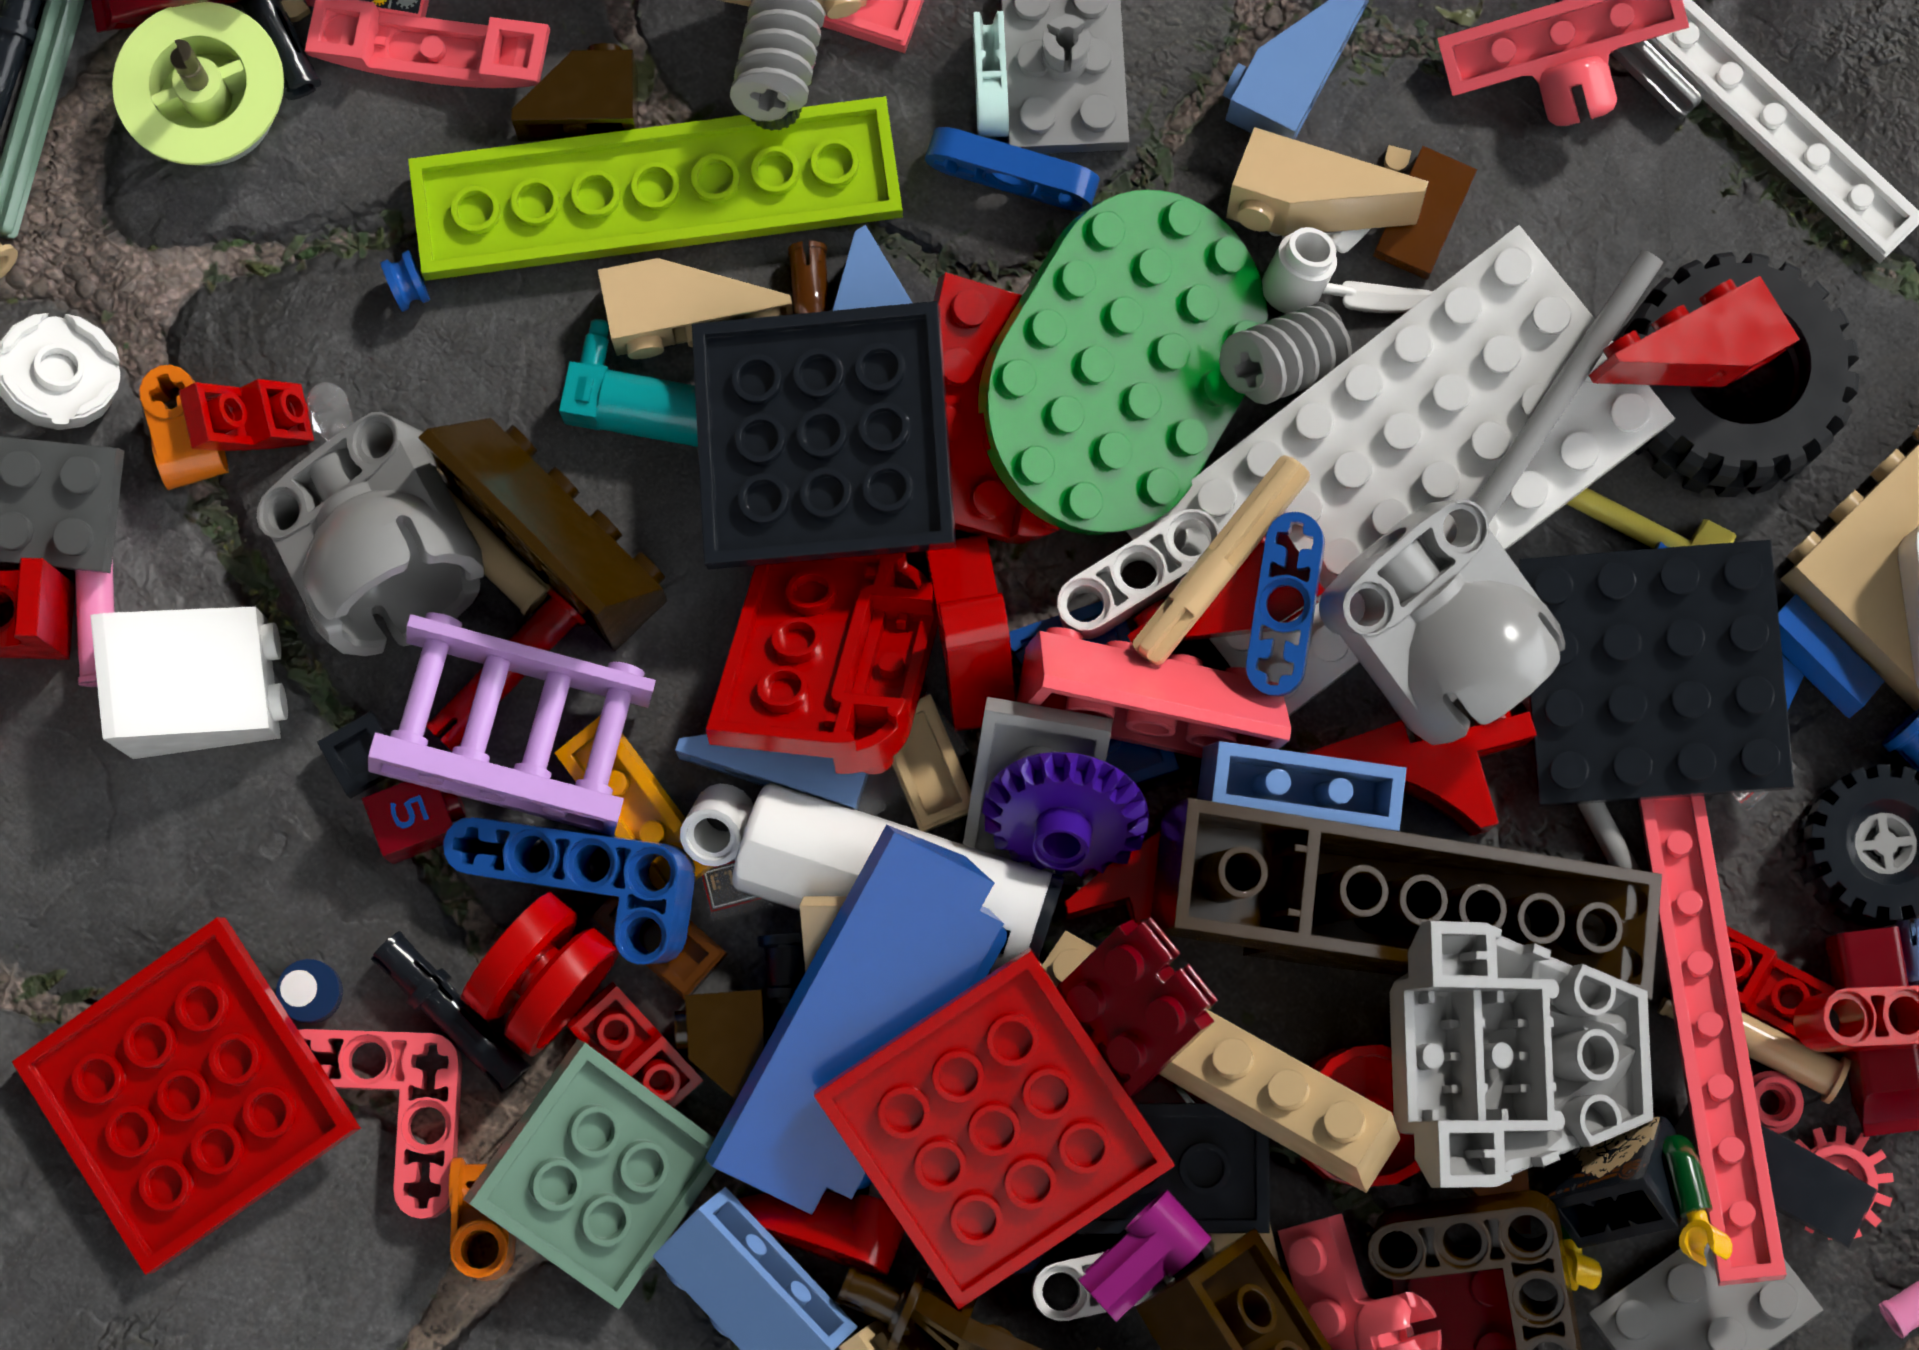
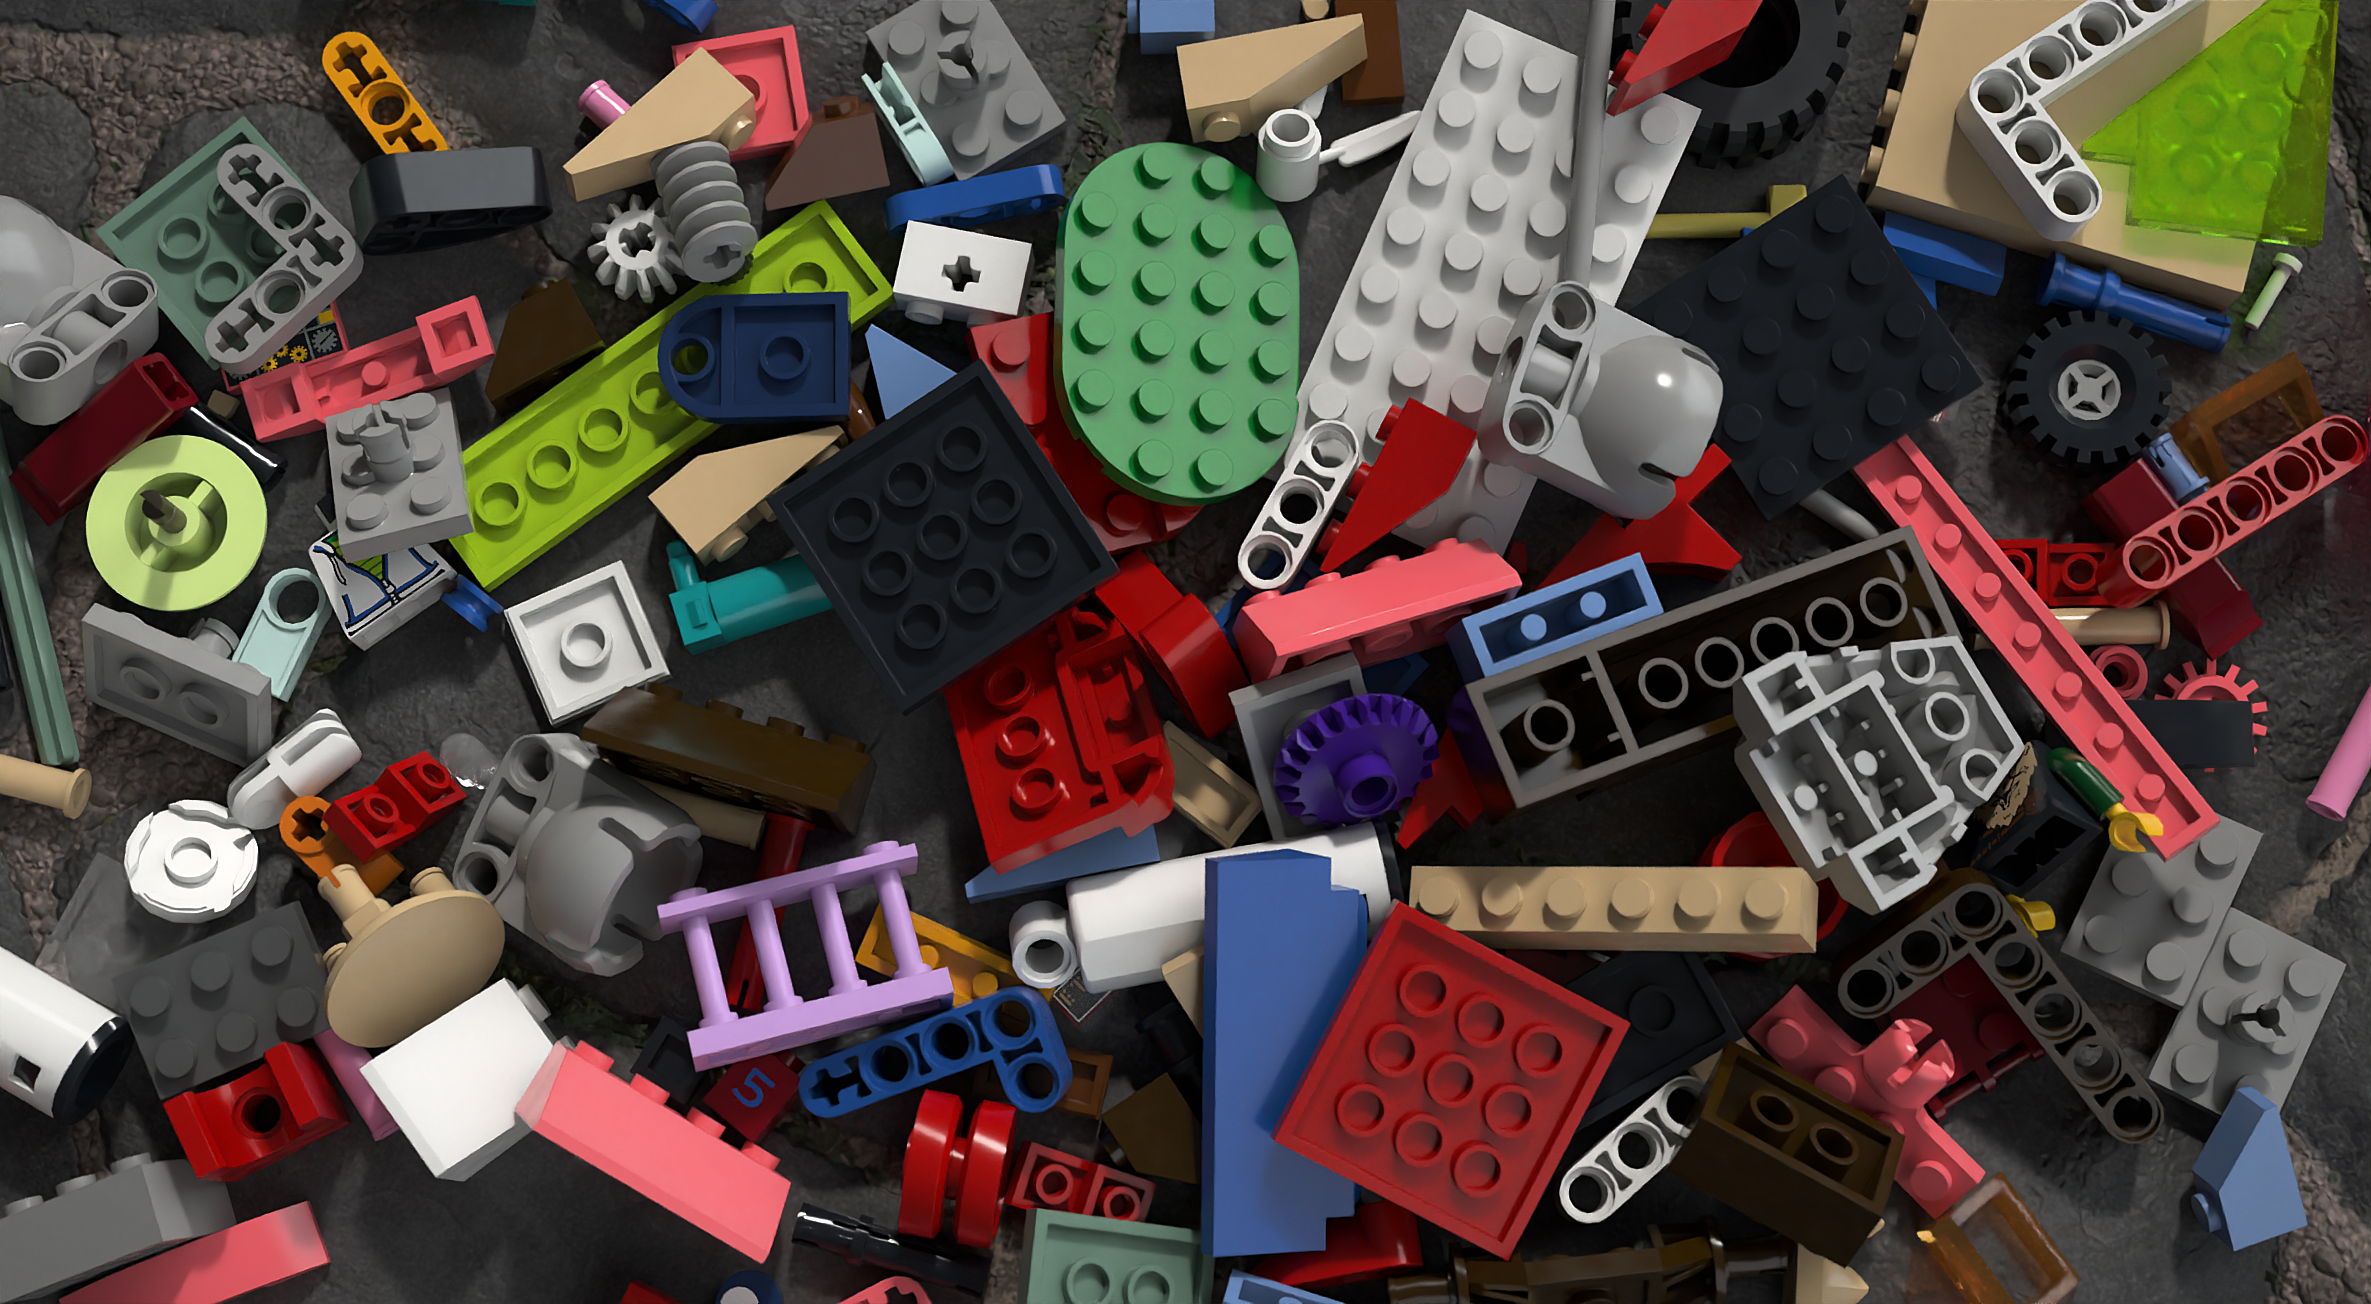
camera: 25 degrees left, 0 degrees up
(128, 218) = (179, 683): none -> light grey plate
(182, 339) = (292, 769): none -> white arm
(183, 546) = (405, 959): none -> tan piece
(222, 234) = (282, 647): none -> light aqua piece
(298, 817) = (657, 1149): none -> coral slope
(342, 209) = (379, 591): none -> white torso
(401, 140) = (398, 475): none -> light grey plate
(483, 366) = (587, 643): none -> white tile
(695, 42) = (630, 230): none -> white gear
(761, 206) = (766, 358): none -> dark blue plate
(913, 66) = (830, 156): none -> reddish brown slope
(957, 199) = (938, 257): none -> white brick
(1136, 1003) = (1520, 896): dark red plate -> none
(1155, 1245) = (1651, 1102): magenta piece -> none
(1221, 560) = (1369, 455): tan axle -> none
(1278, 555) = (1418, 423): blue beam -> none
(1285, 353) = (1318, 237): light grey piece -> none
(1307, 720) = (1518, 557): none -> red piece

